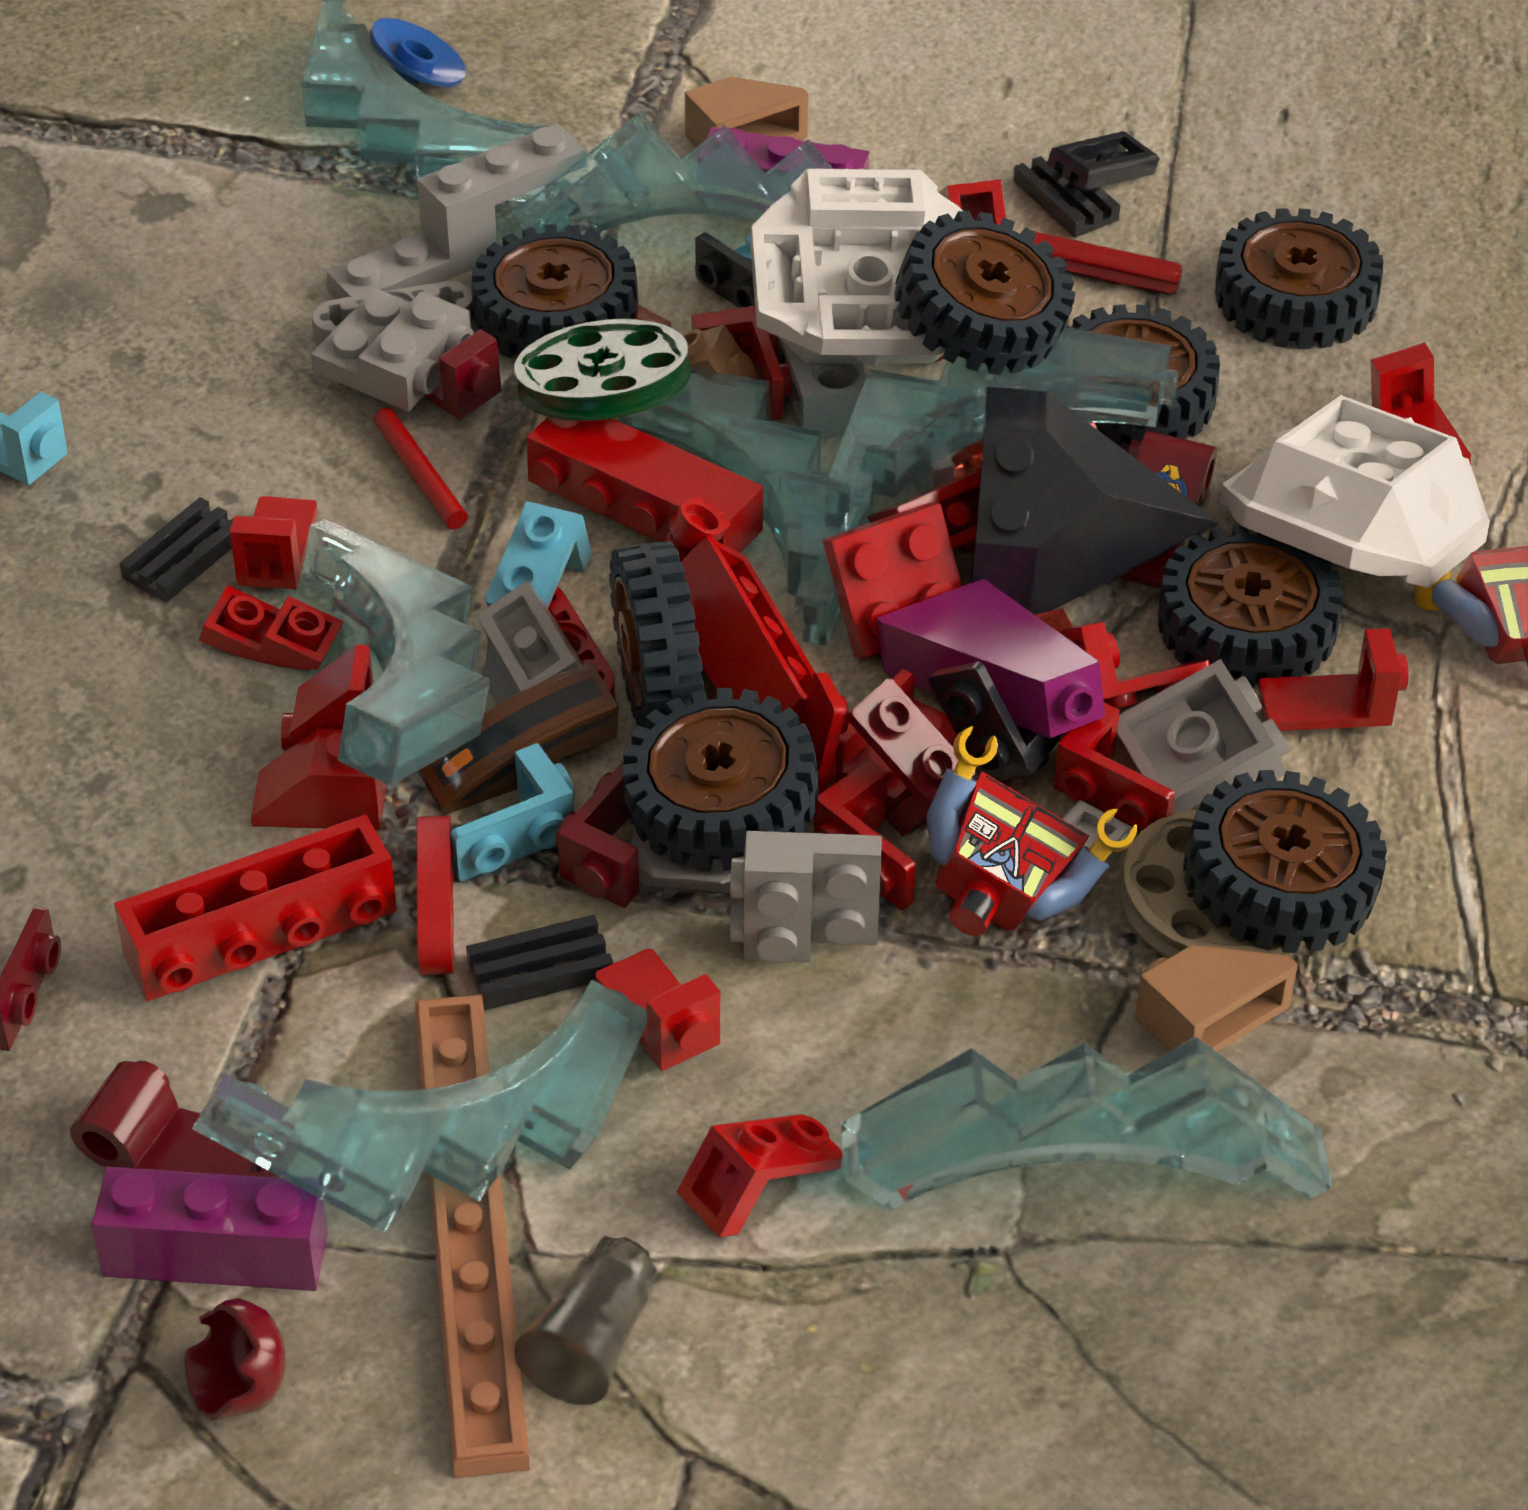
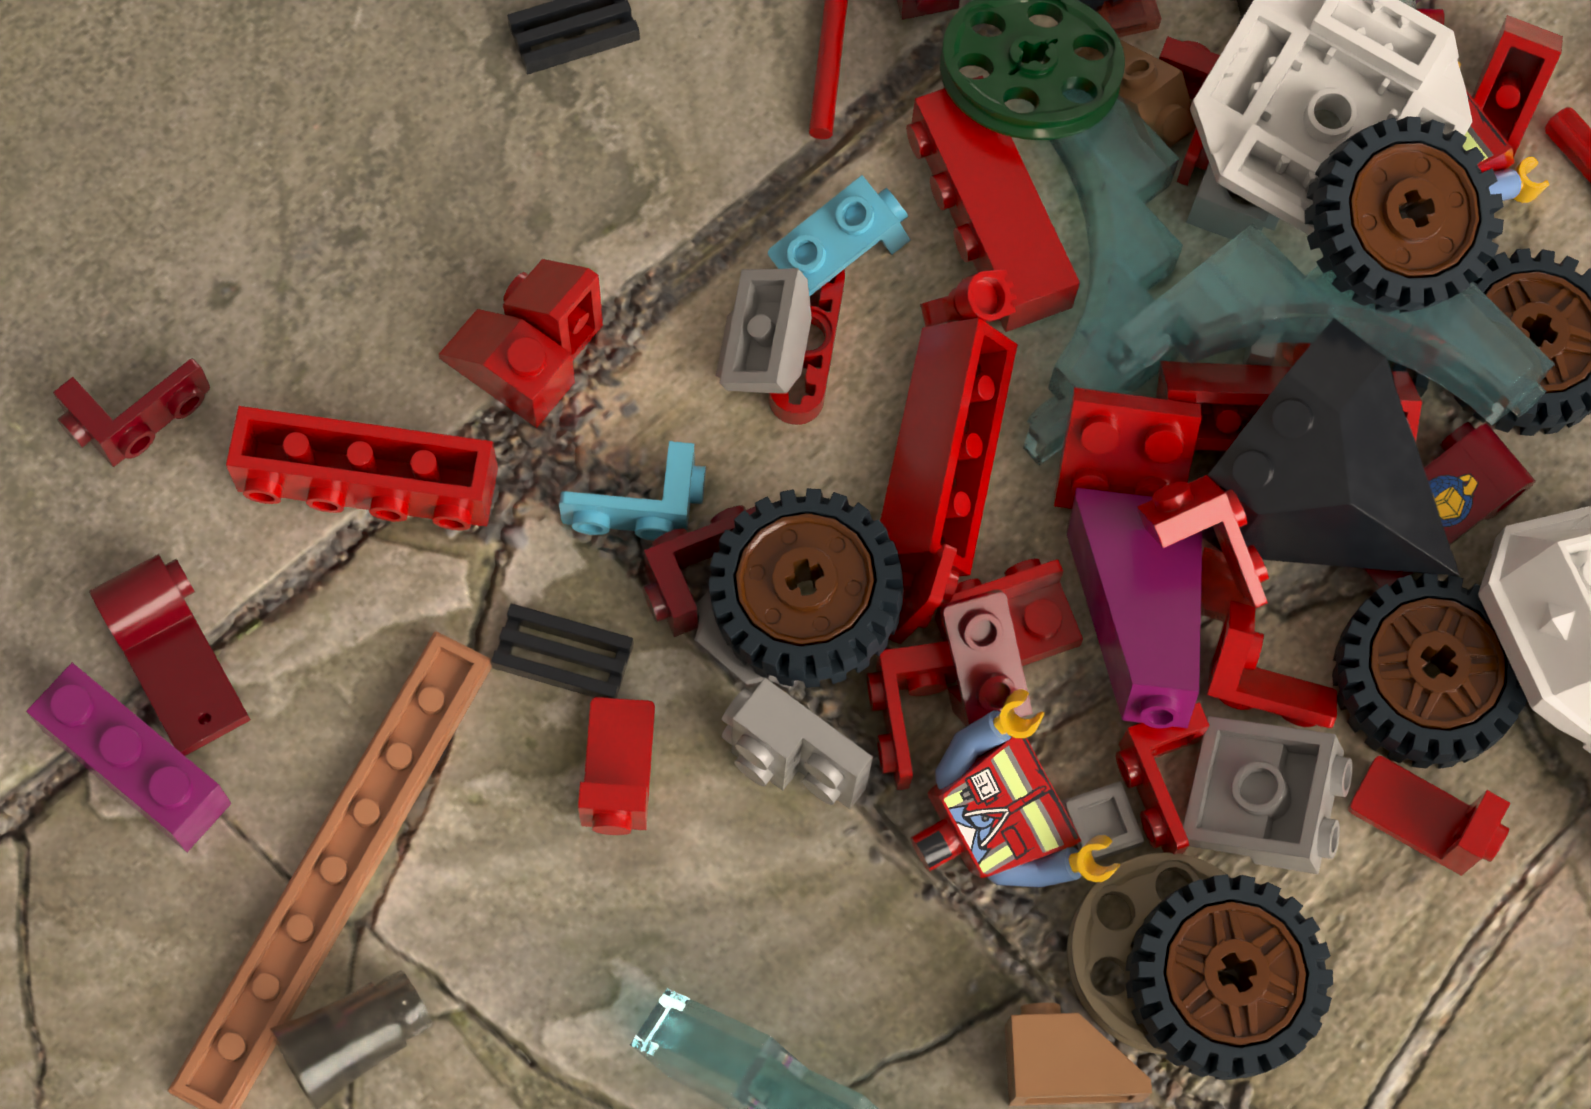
camera: 30 degrees right, 25 degrees up
(237, 1362) = (68, 895): dark red hair -> none
(273, 542) = (649, 70): red bracket -> none
(283, 637) = (583, 164): red slope -> none
(371, 1145) = (272, 794): clear light blue arch -> none
(427, 653) = (620, 350): clear light blue arch -> none
(435, 896) = (519, 536): red beam -> none
(558, 714) = (713, 416): reddish brown slope -> none
(654, 627) = (857, 402): black wheel -> none
(741, 1159) = (585, 974): red bracket -> none
(973, 700) = (1078, 687): black bracket -> none
(1022, 571) = (1191, 507): none -> red bracket

